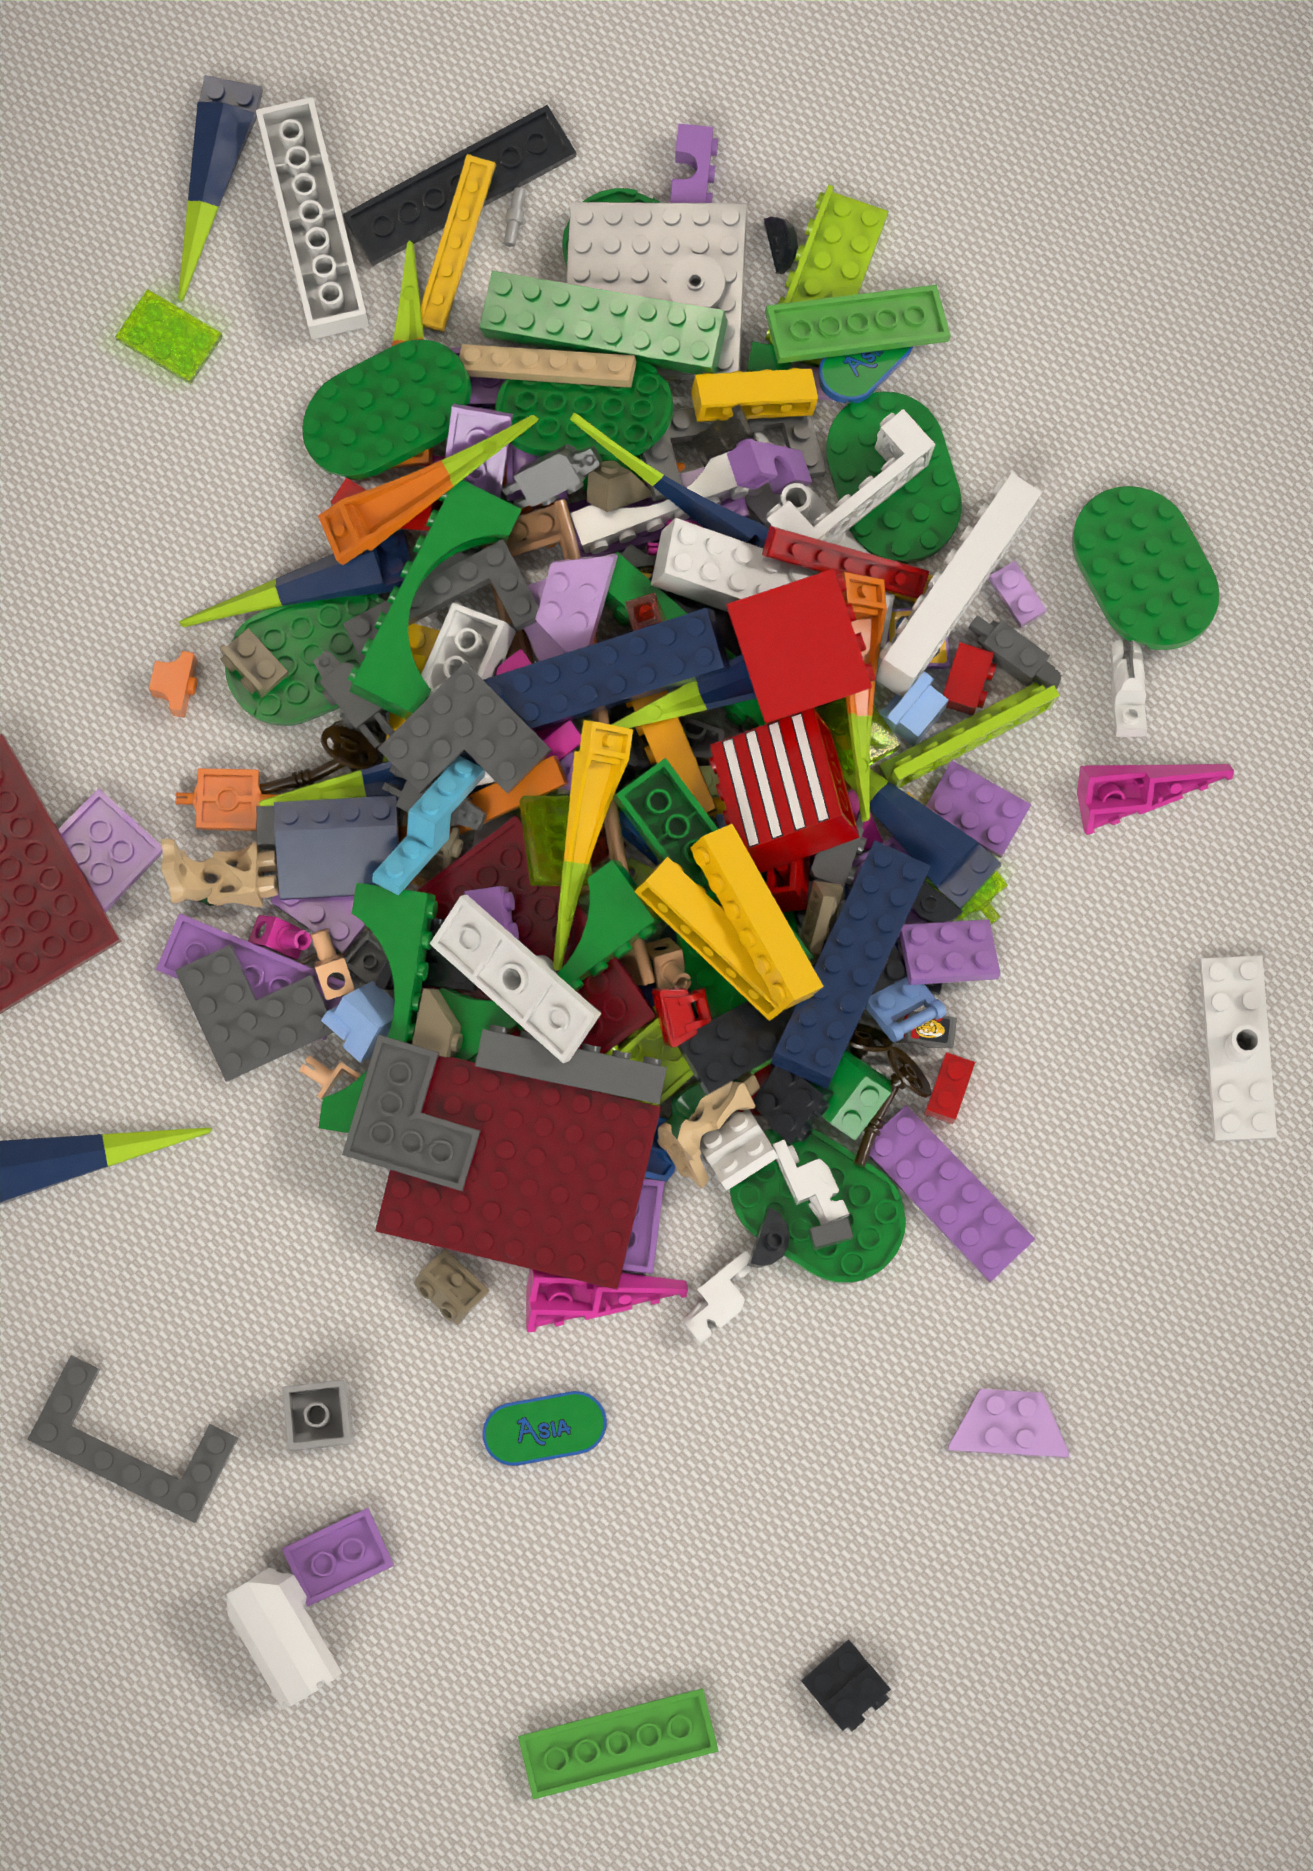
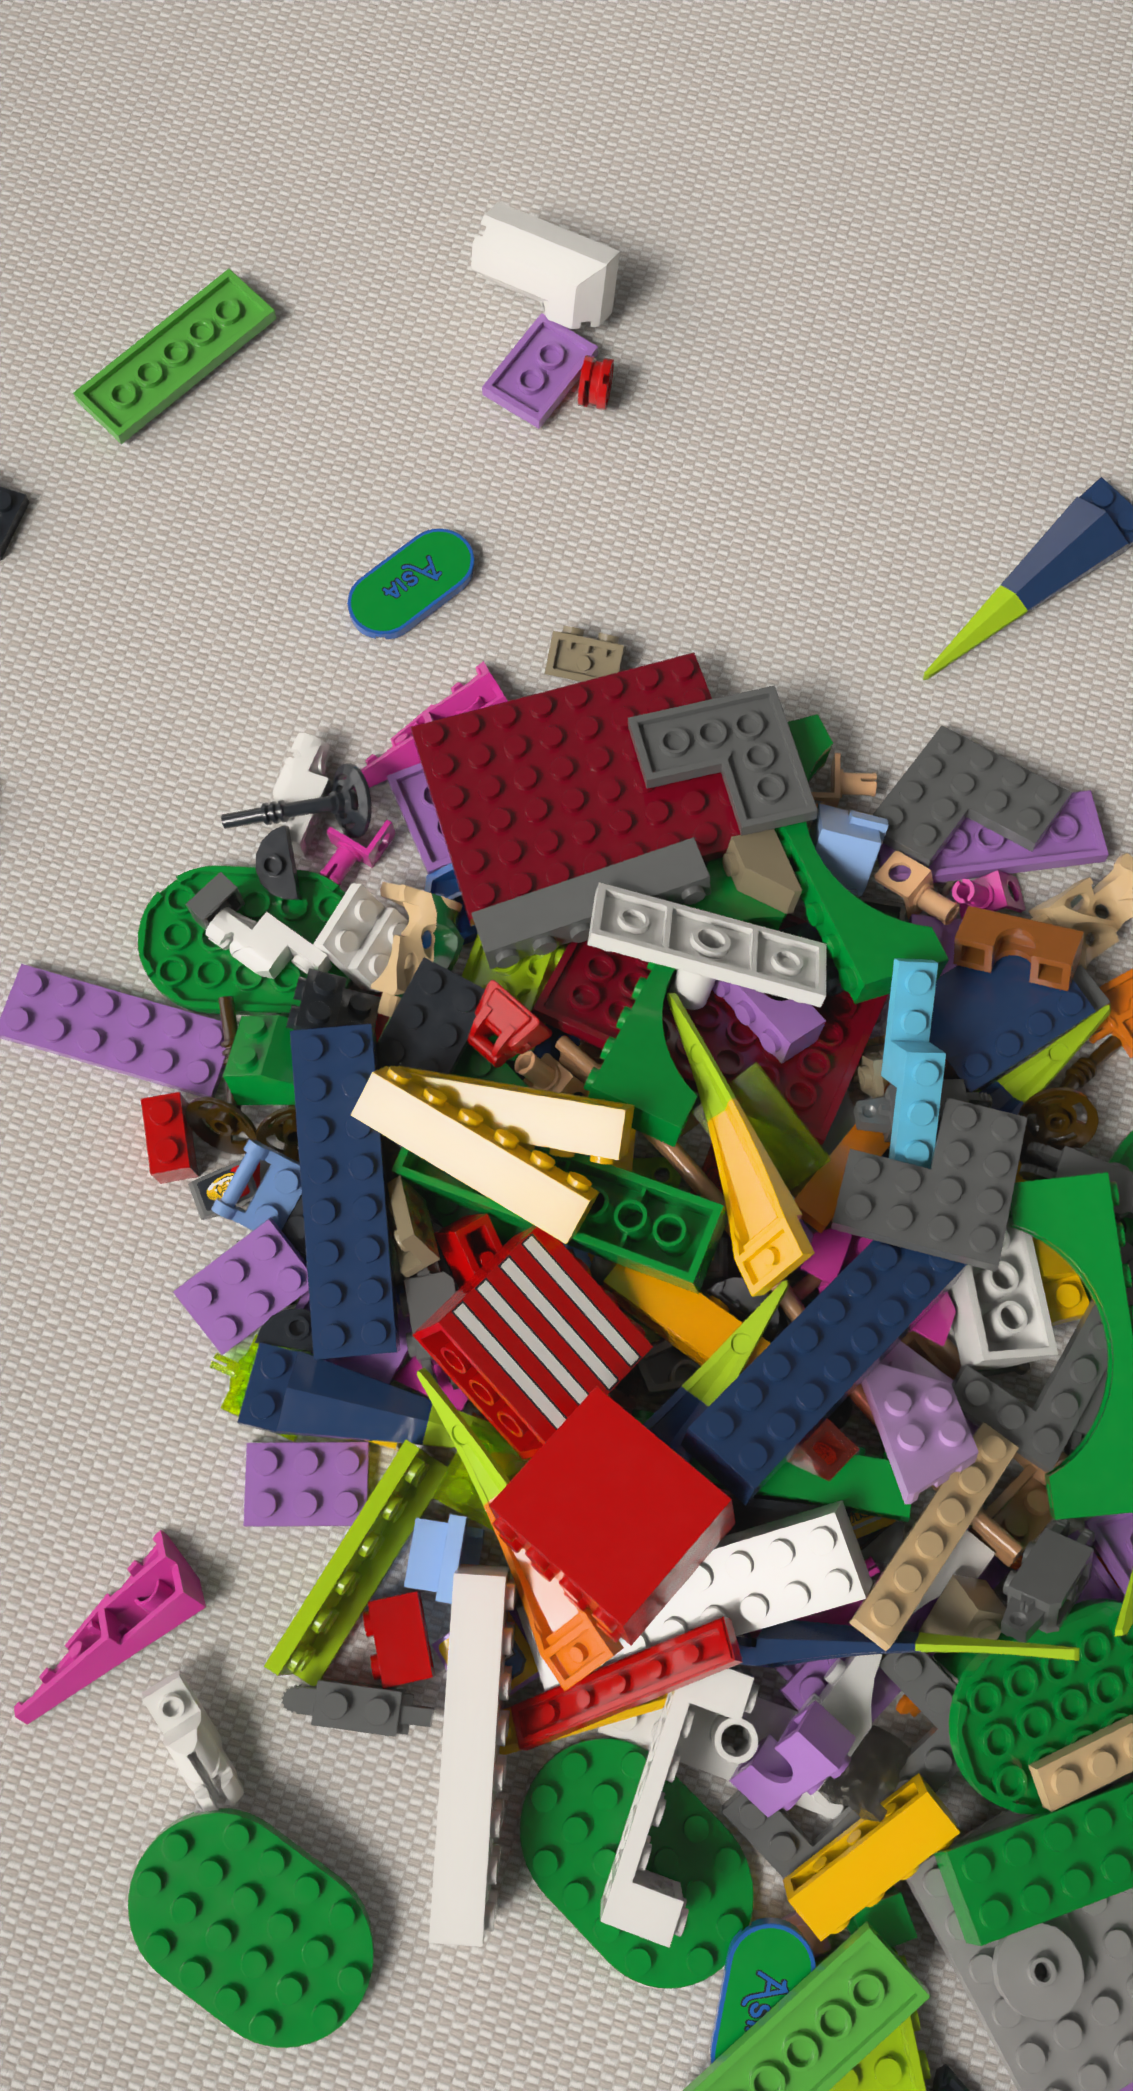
camera: 150 degrees right, 5 degrees down
(57, 1435) = (729, 346): dark grey plate -> none
(304, 1514) = (595, 382): none -> red wheel
(308, 897) = (990, 935): none -> dark orange arch
(317, 1415) = (639, 468): light grey brick -> none
(608, 533) = (932, 1540): none -> tan plate
(701, 1264) = (337, 802): none -> black dish
(713, 1229) = (351, 851): none -> dark pink bracket
(1017, 594) = (397, 1793): lavender plate -> none

